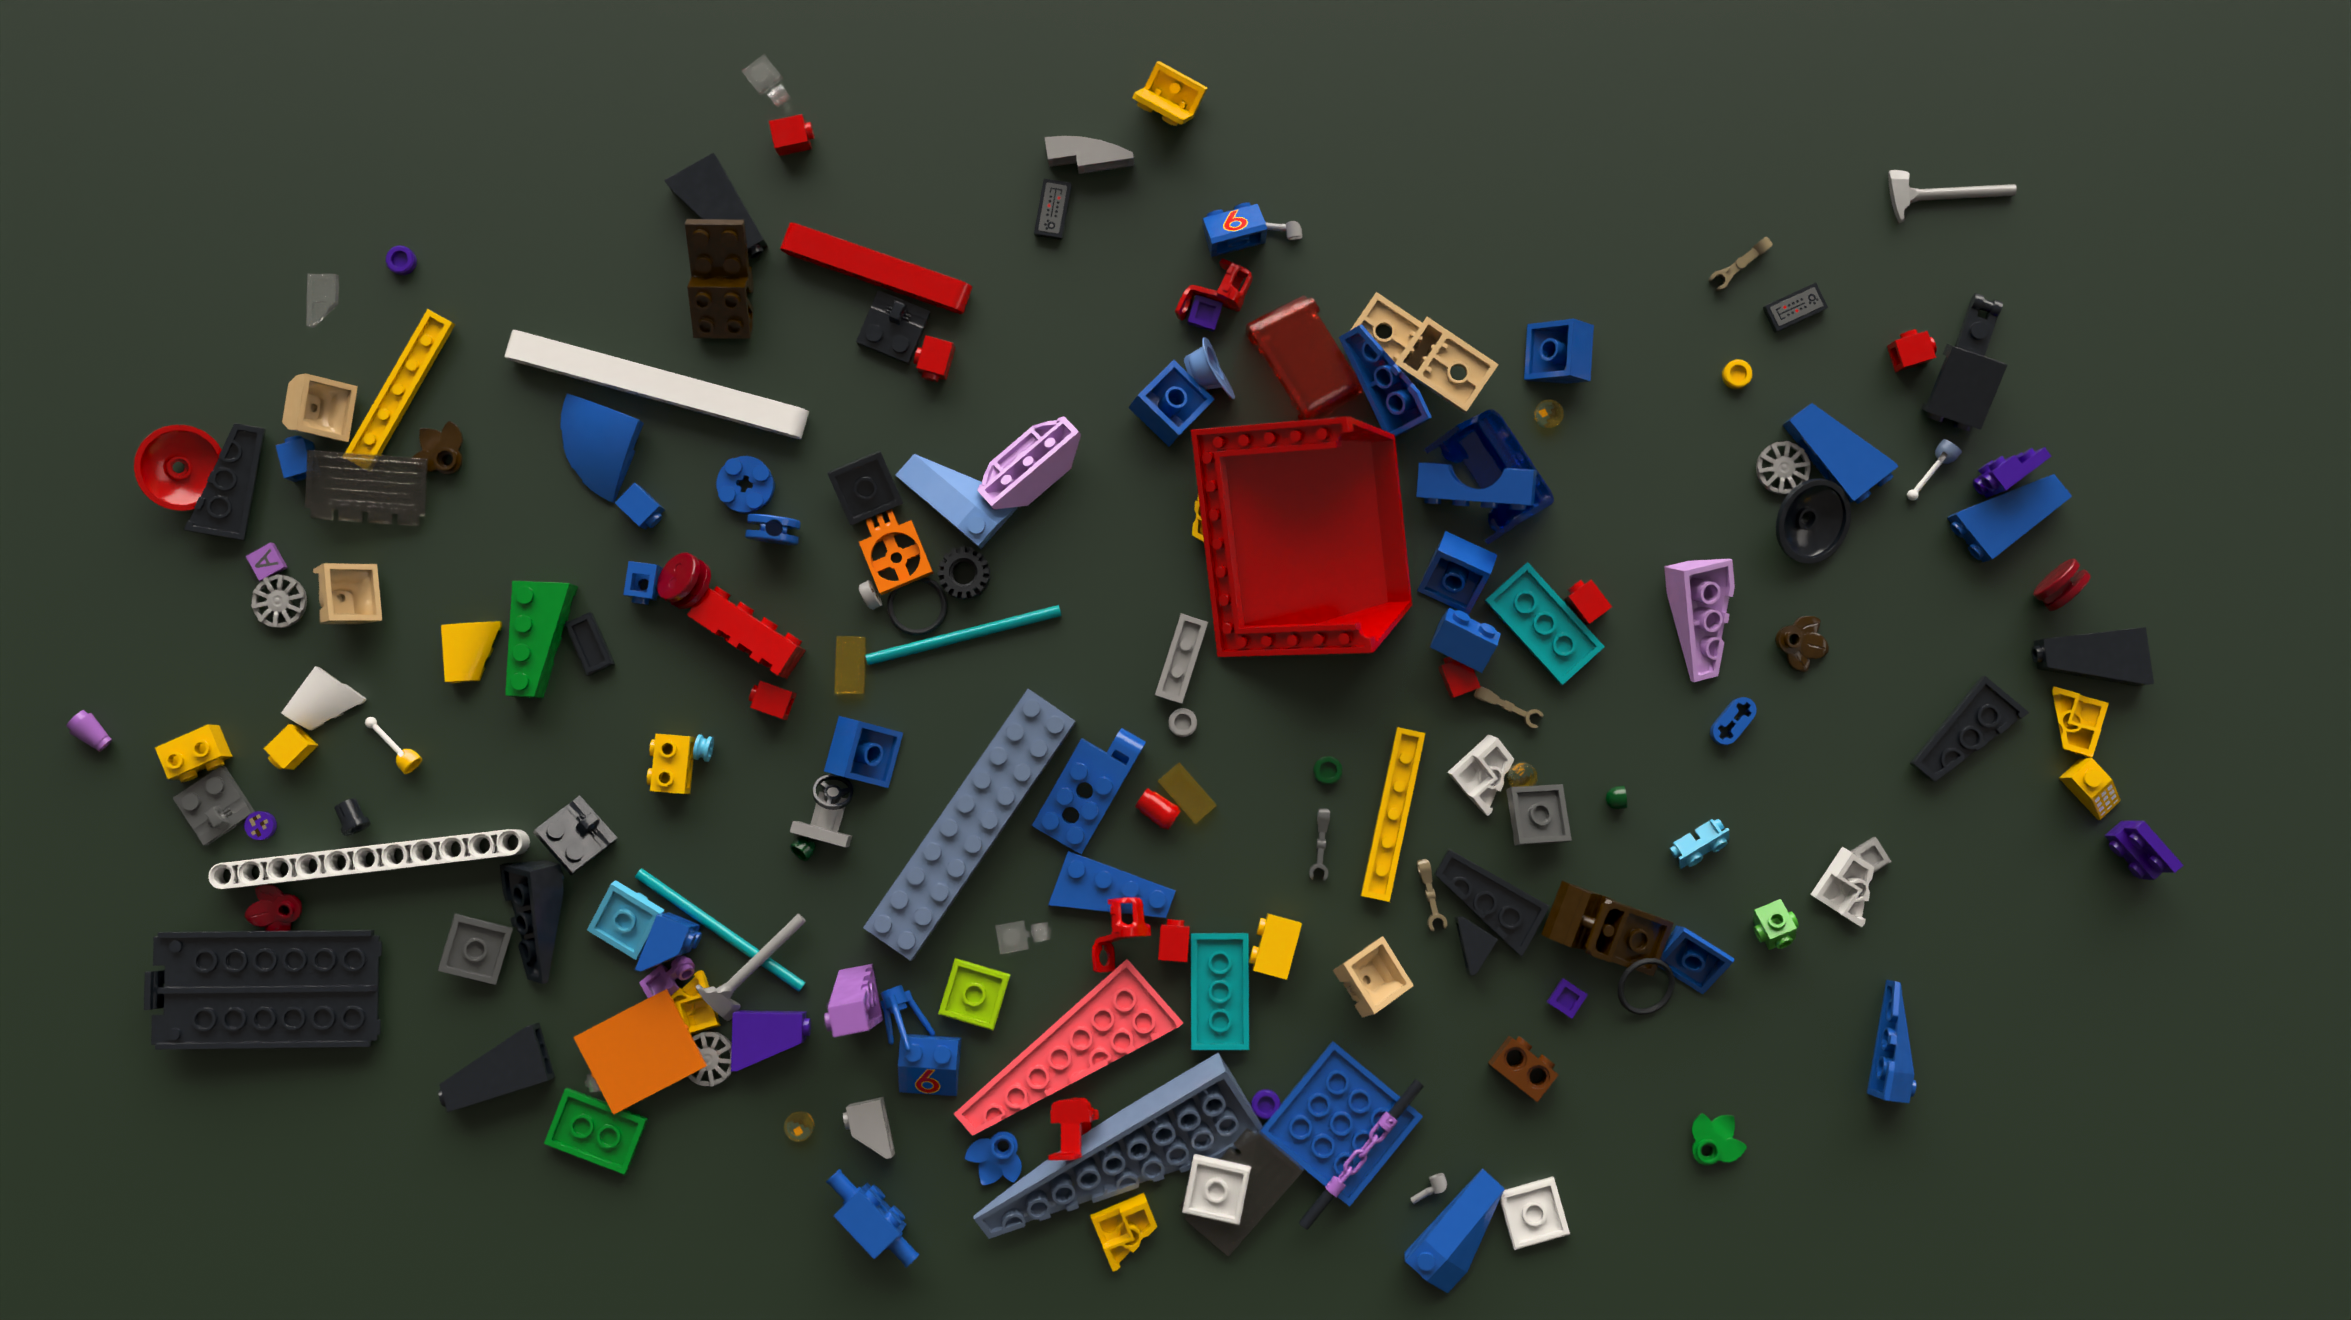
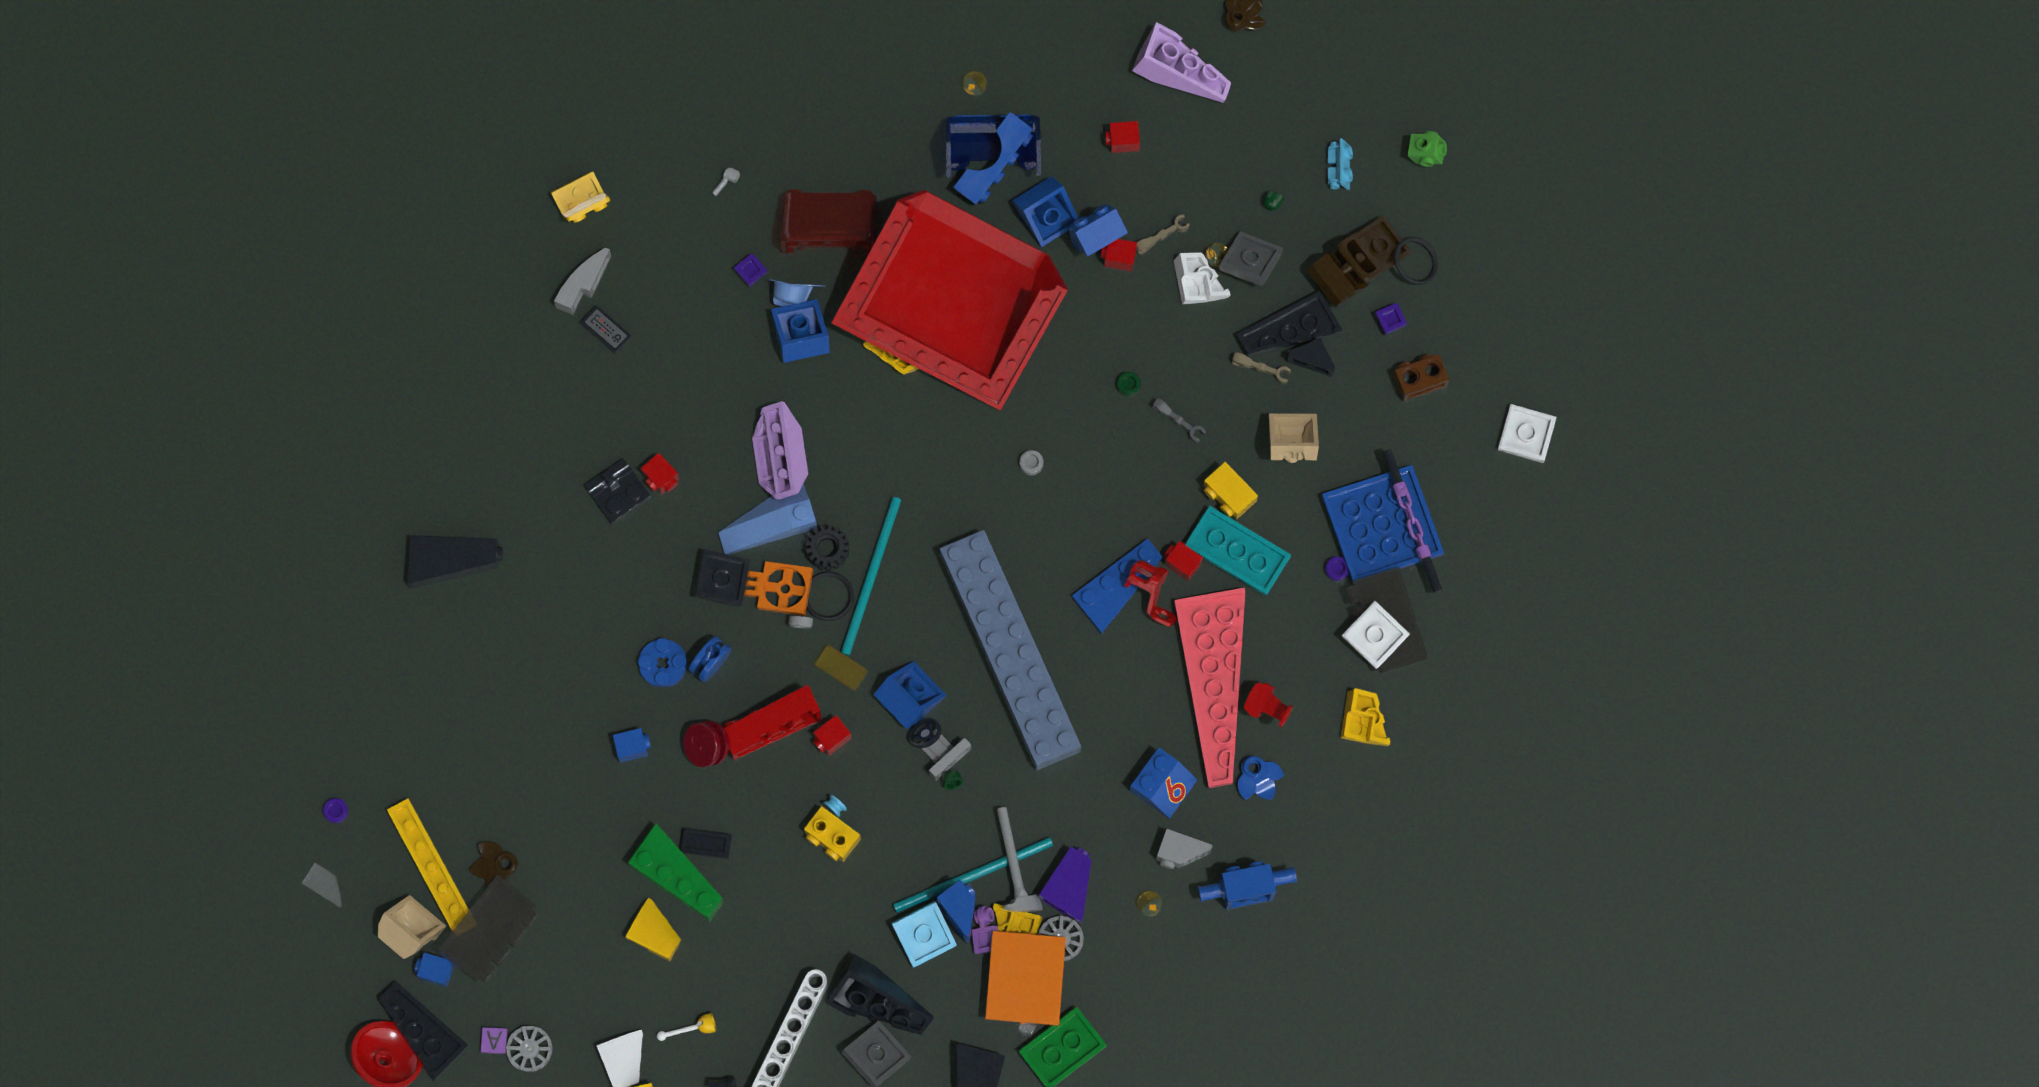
camera: 60 degrees left, 10 degrees down
(349, 593) = (560, 989): tan brick -> none
(575, 835) = (839, 933): hinge -> none
(598, 444) = (564, 748): blue brick -> none
(635, 575) = (683, 768): blue brick -> none
(656, 384) = (549, 681): white beam -> none
(719, 279) = (506, 586): dark brown piece -> none
(765, 77) = (374, 472): clear plate -> none
(791, 134) = (431, 476): red brick -> none
(854, 1002) = (1086, 799): medium lavender wedge -> none
(876, 268) = (567, 476): red beam -> none
(893, 1002) = (1104, 777): blue plant -> none
(974, 994) = (1132, 722): lime plate -> none
(1014, 936) = (1109, 670): clear plate -> none
(1104, 773) = (1034, 535): blue hinge -> none
(1150, 1138) = (1310, 674): sand blue wedge -> none
(1158, 809) = (1082, 515): red piece -> none
(1181, 658) = (985, 435): light grey plate -> none
(1187, 793) = (1083, 490): clear yellow tile -> none
(1226, 293) = (749, 243): red piece -> none
(1234, 229) = (705, 212): blue slope -> none
(1389, 391) = (887, 175): blue wedge -> none
(1393, 814) = (1188, 357): yellow plate -> none
(1428, 352) = (876, 140): tan bracket -> none
(1438, 1185) = (1466, 484): light grey hand -> none
(1452, 1239) = (1509, 495): blue wedge -> none
(1544, 623) = (1120, 175): teal plate -> none
(1559, 351) = (936, 49): blue slope -> none
(1694, 959) = (1417, 216): blue slope -> none
(1718, 1136) = (1550, 277): green plate -> none
(1728, 716) = (1273, 90): blue beam -> none
(1846, 885) = (1430, 86): white slope -> none
(1873, 853) = (1420, 59): light grey tile -> none
(1892, 1061) = (1569, 129): blue wedge -> none

